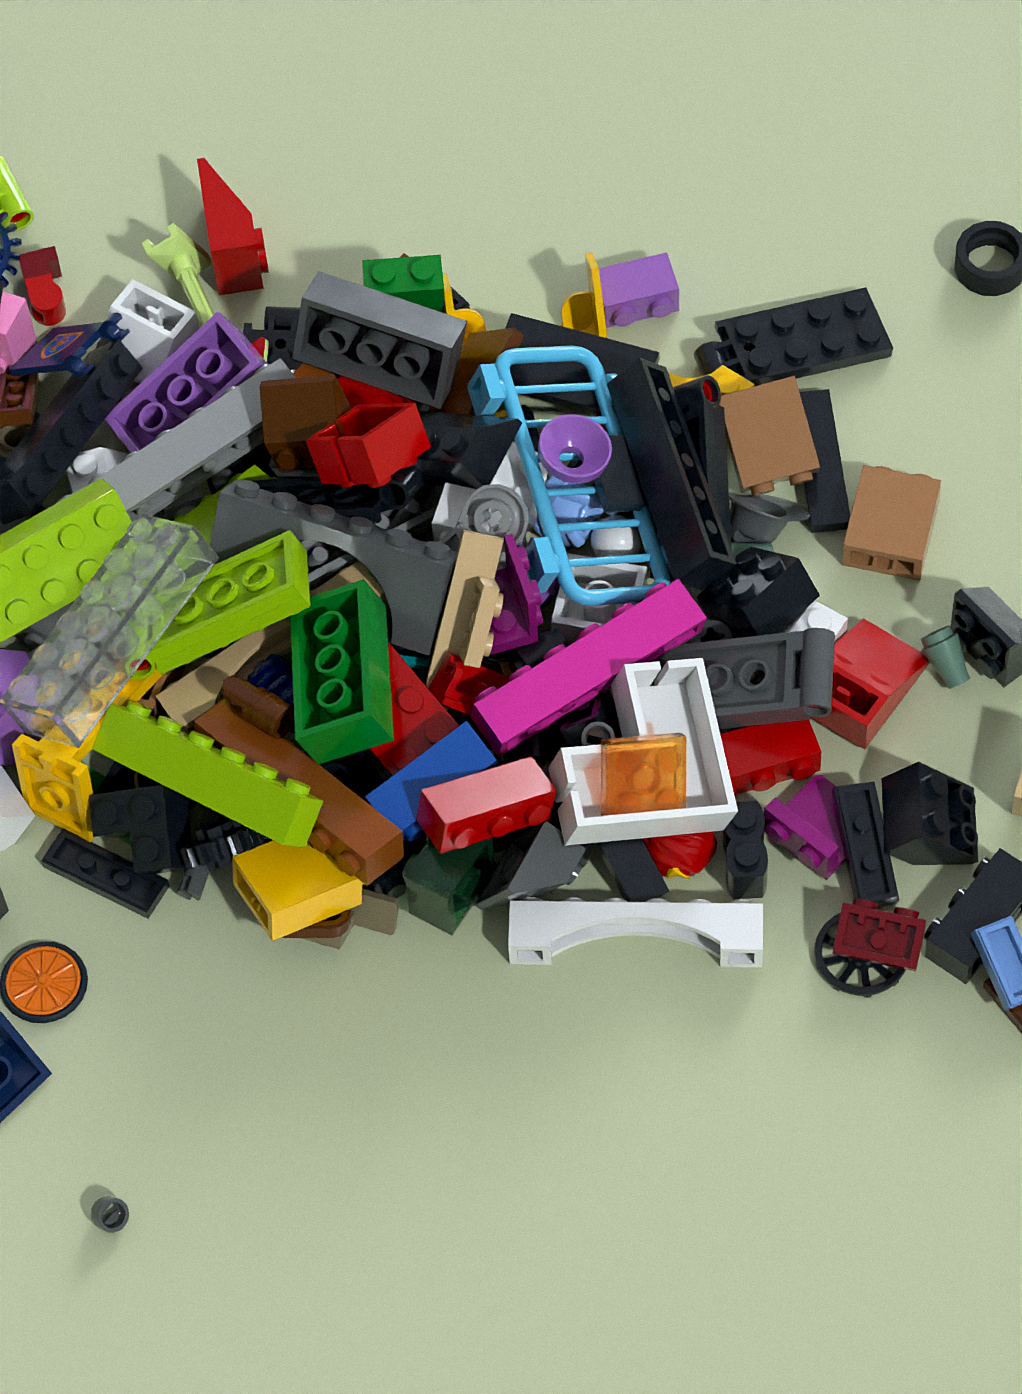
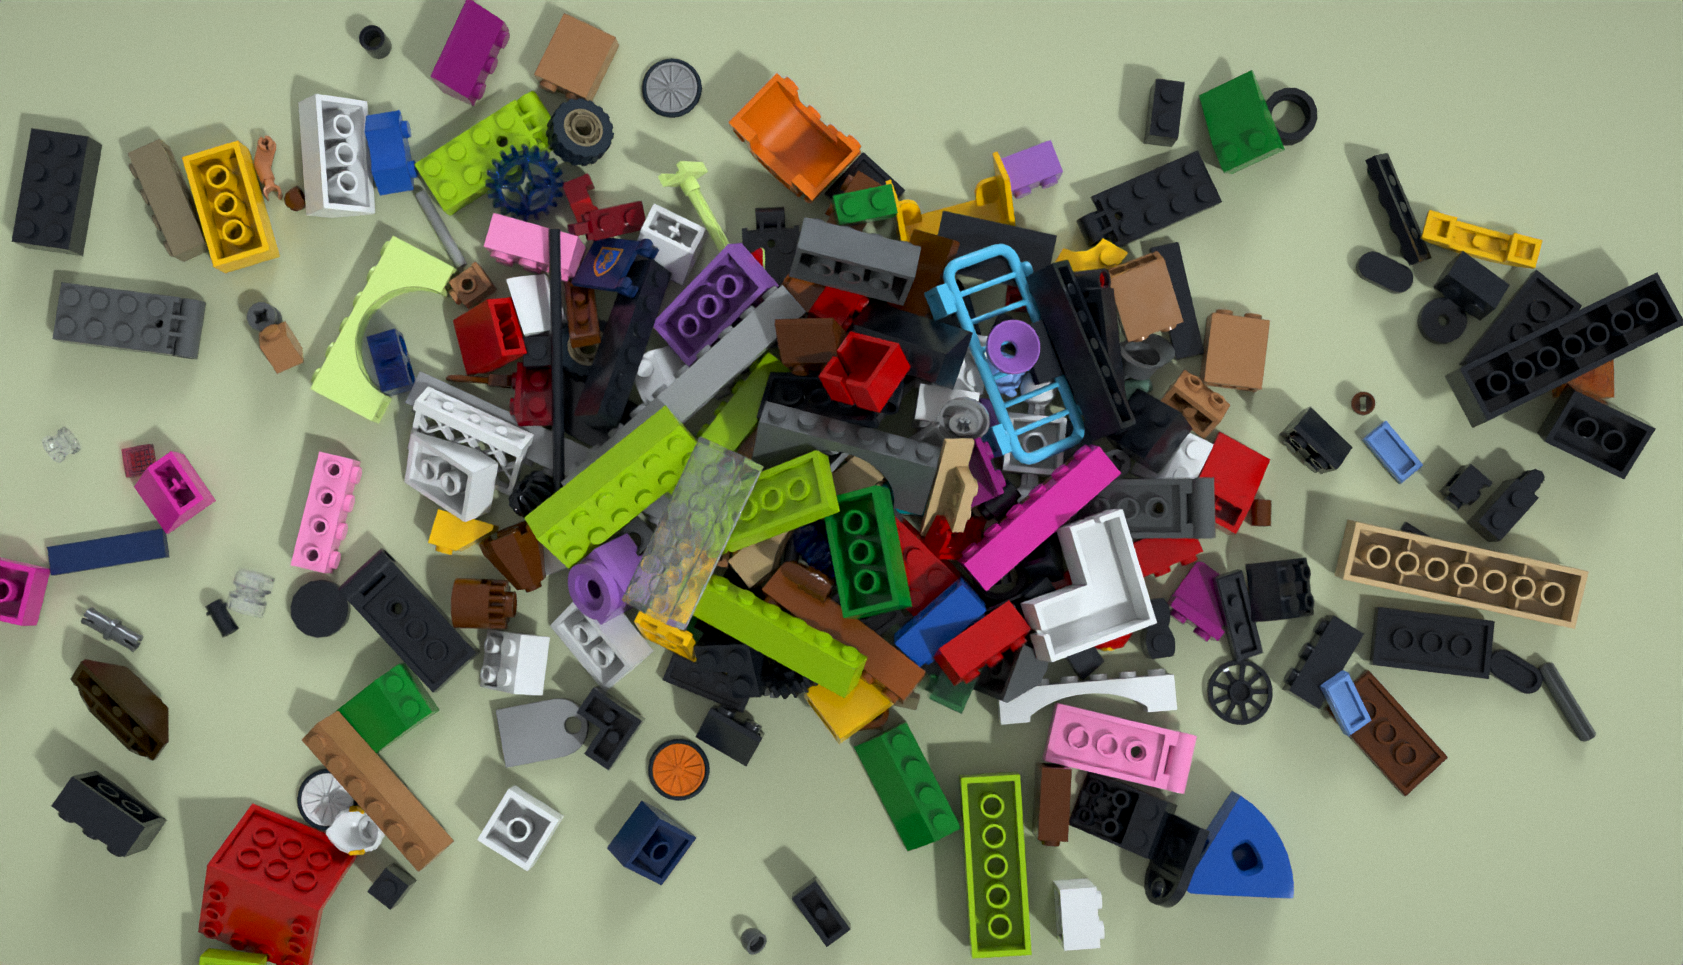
camera: 10 degrees left, 25 degrees up
(52, 202) = (590, 121): none -> black wheel
(64, 128) = (576, 59): none -> medium nougat brick
(70, 301) = (610, 221): none -> dark red hinge
(123, 927) = (730, 733): none -> black slope
(173, 171) = (671, 88): none -> light grey wheel
(213, 1173) = (821, 911): none -> black brick
(234, 243) = (724, 161): red slope -> none
(319, 222) = (793, 139): none -> orange cylinder
(365, 1026) = (907, 786): none -> green slope
(474, 1135) = (995, 865): none -> lime brick
(567, 1054) = (1051, 803): none -> reddish brown brick
(587, 1207) = (1077, 914): none -> white brick
(596, 731) = (1054, 586): dark grey hinge -> none
(643, 774) = (1090, 610): clear orange plate -> none
(655, 996) = (1104, 747): none -> bright pink hinge
(675, 1094) = (1122, 815): none -> black slope
(737, 1148) = (1175, 863): none -> black tile
(823, 239) = (1164, 112): none -> black brick
(834, 1156) = (1242, 855): none -> blue piece
(839, 579) = (1196, 402): none -> medium nougat brick
(879, 935) = (1255, 687): dark red bracket -> none
(912, 722) = (1261, 512): none -> reddish brown hinge
(924, 259) = (1240, 123): none -> green slope
(946, 655) = (1281, 459): sand green cone -> none

